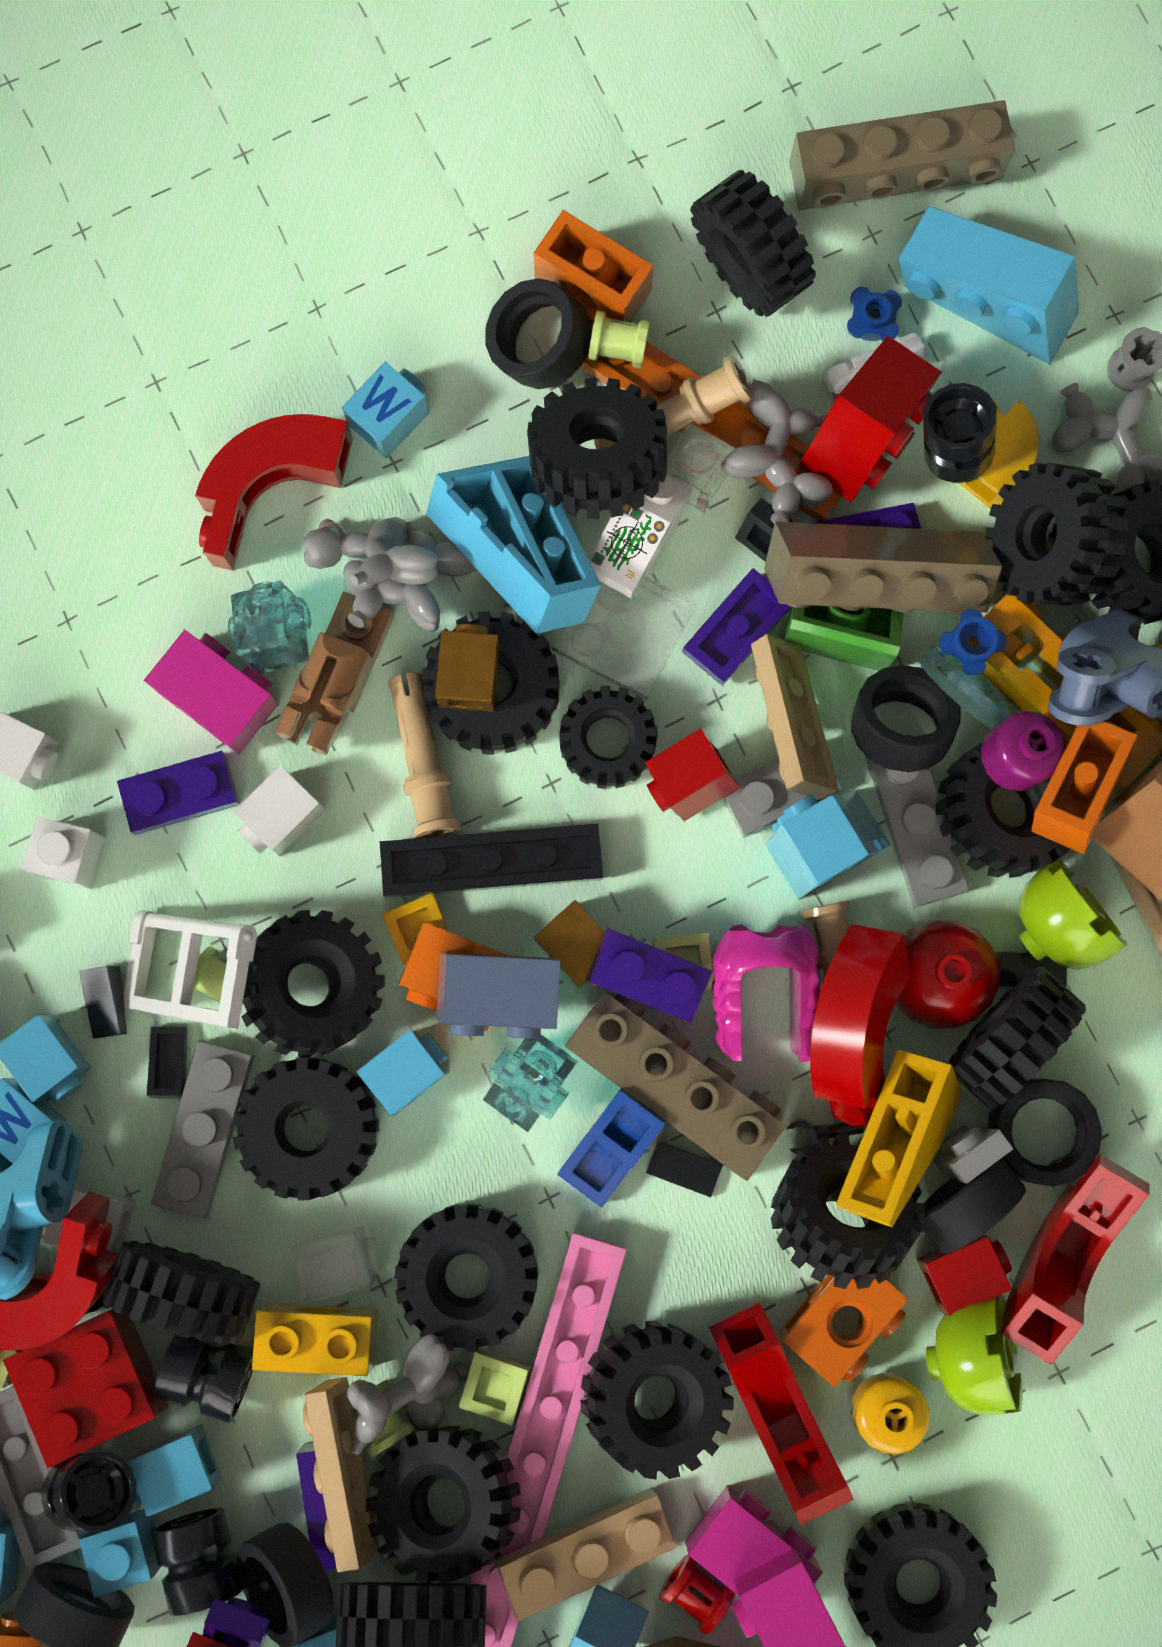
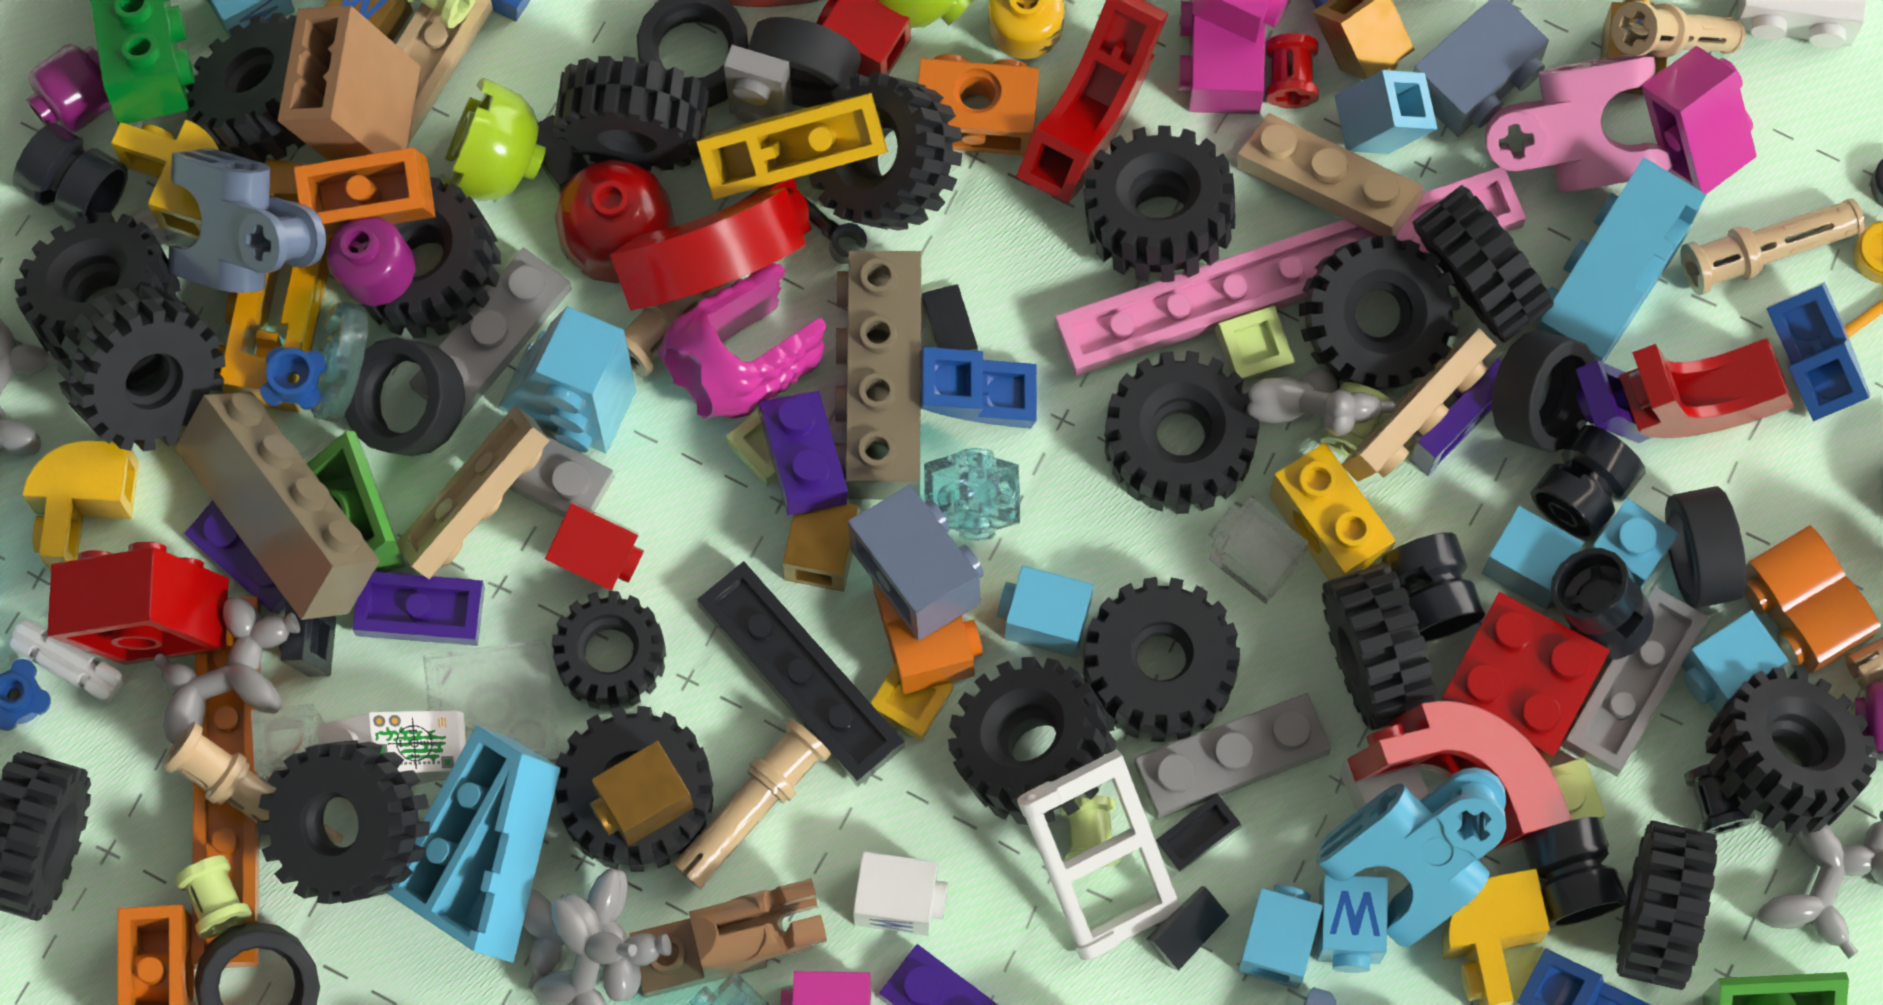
camera: 125 degrees left, 10 degrees down
(959, 432) = (100, 511): black wheel -> none

